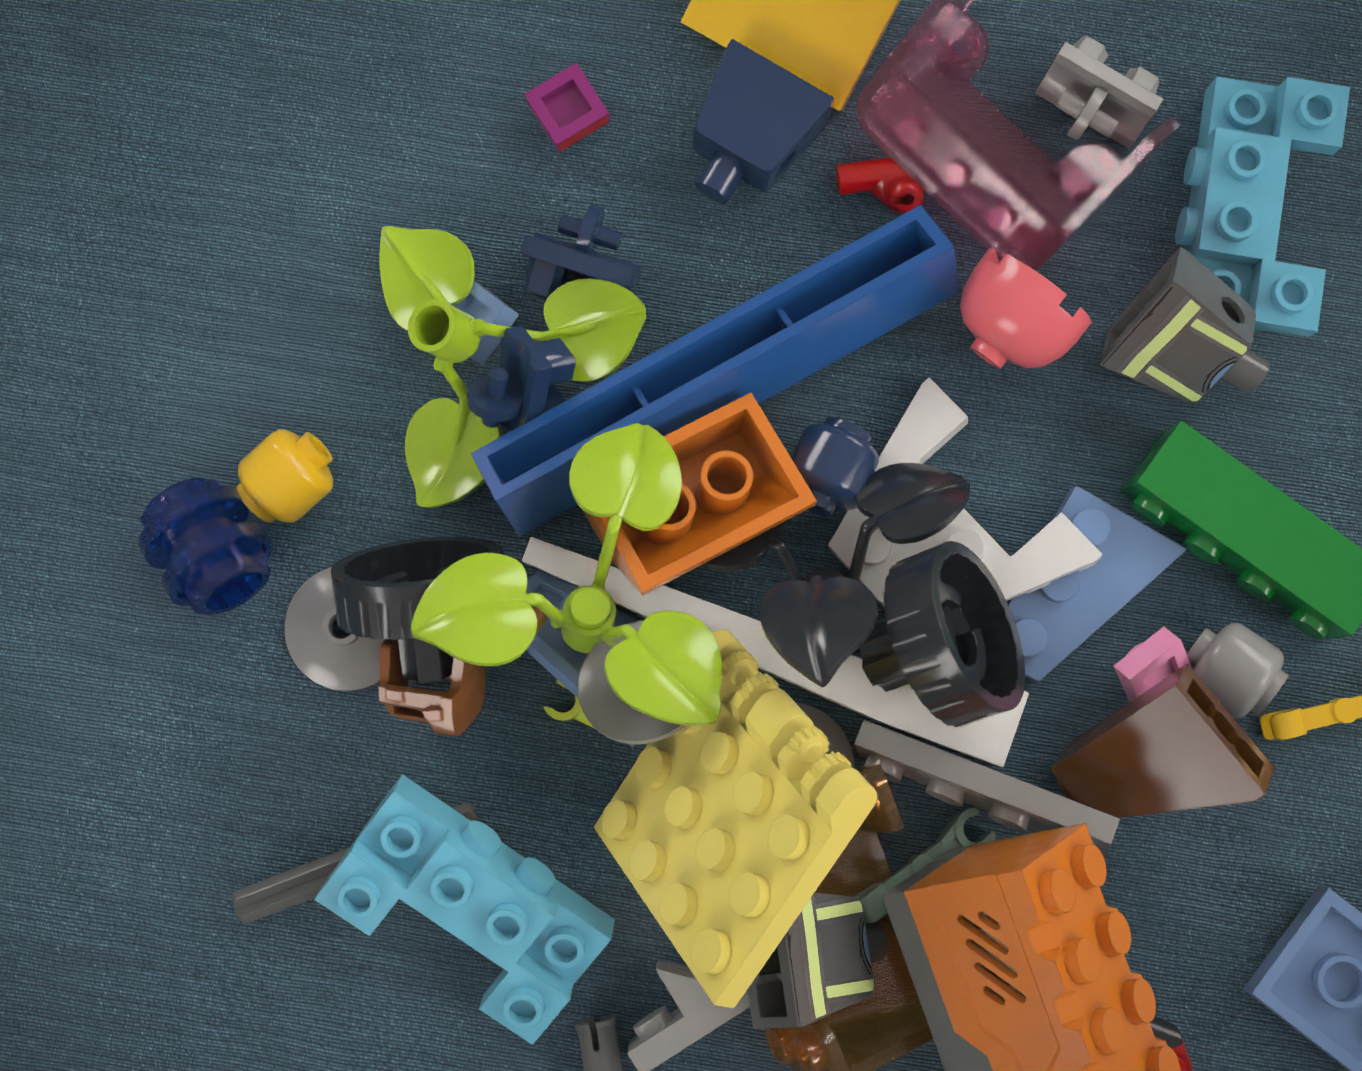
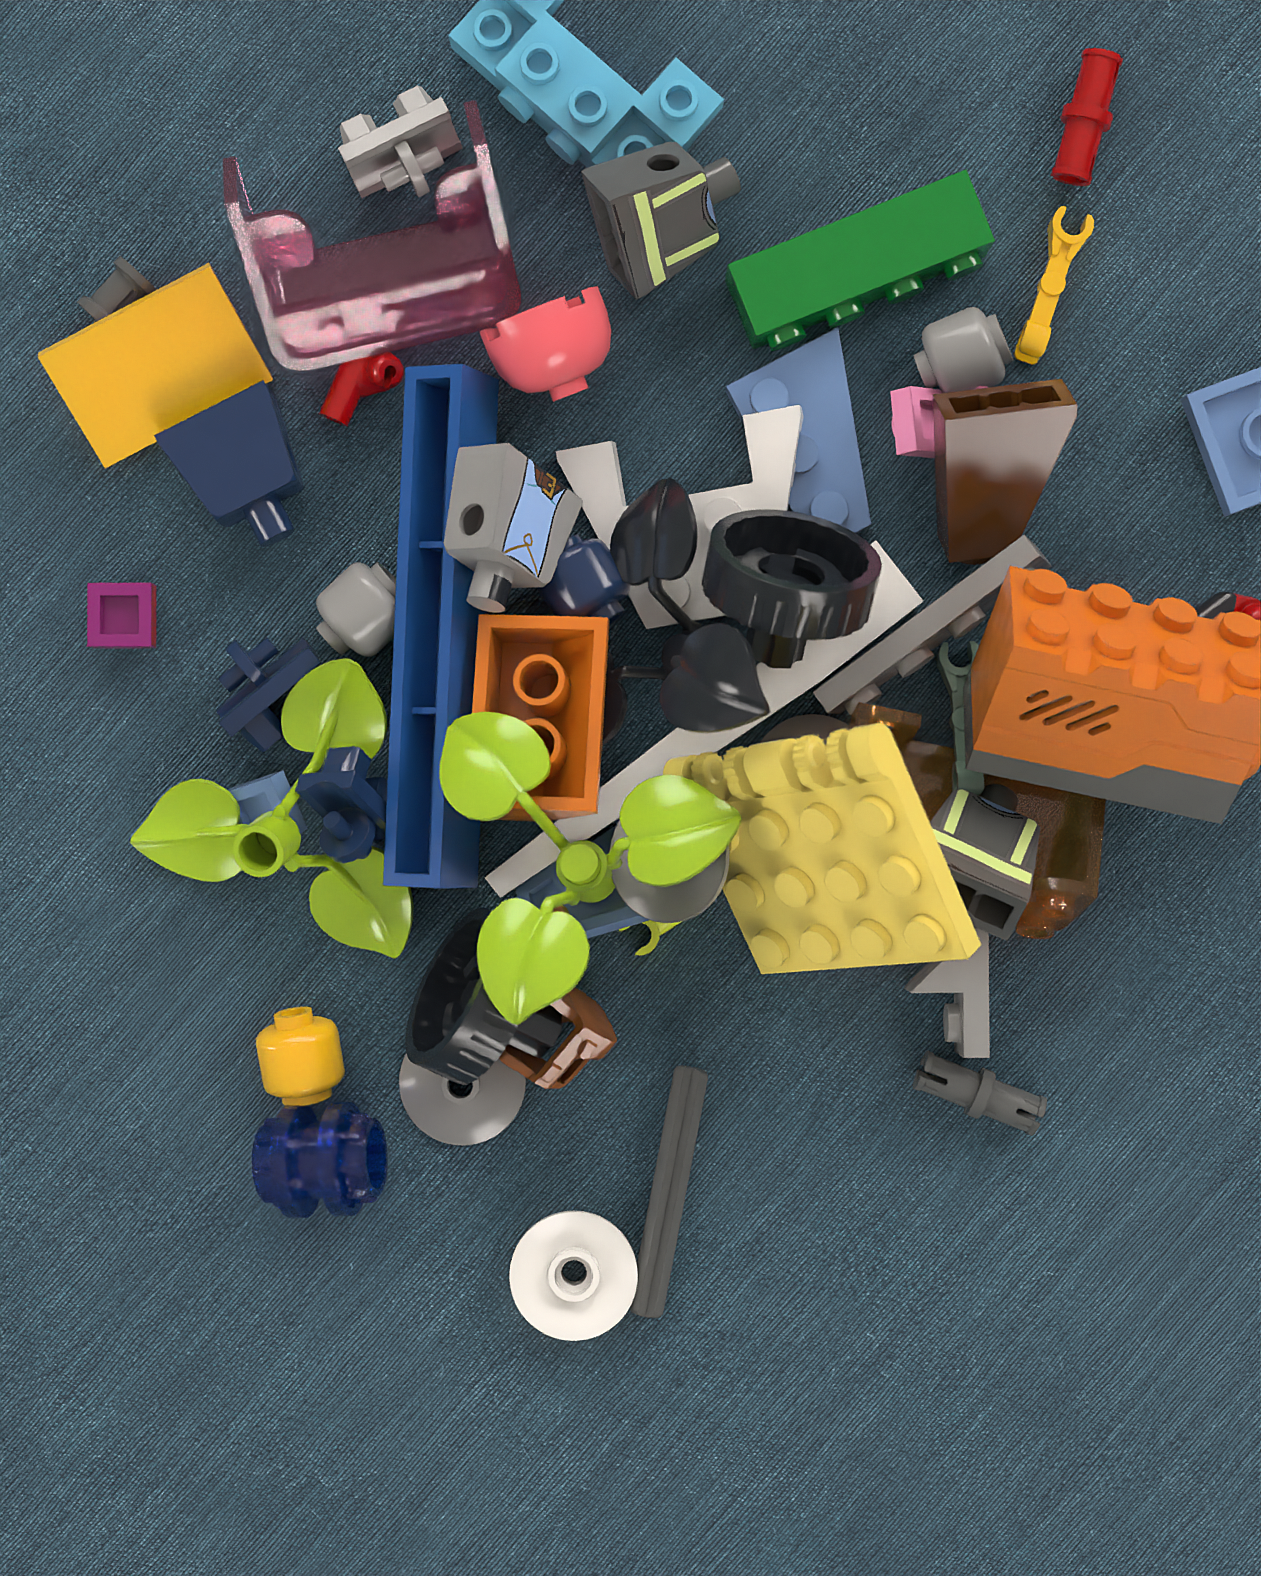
camera: 65 degrees left, 5 degrees up
(203, 829) = (569, 1307): none -> white dish
(477, 892) = (756, 1102): medium azure bracket -> none
(691, 293) = (358, 609): none -> light grey head
(844, 366) = (506, 522): none -> light grey torso

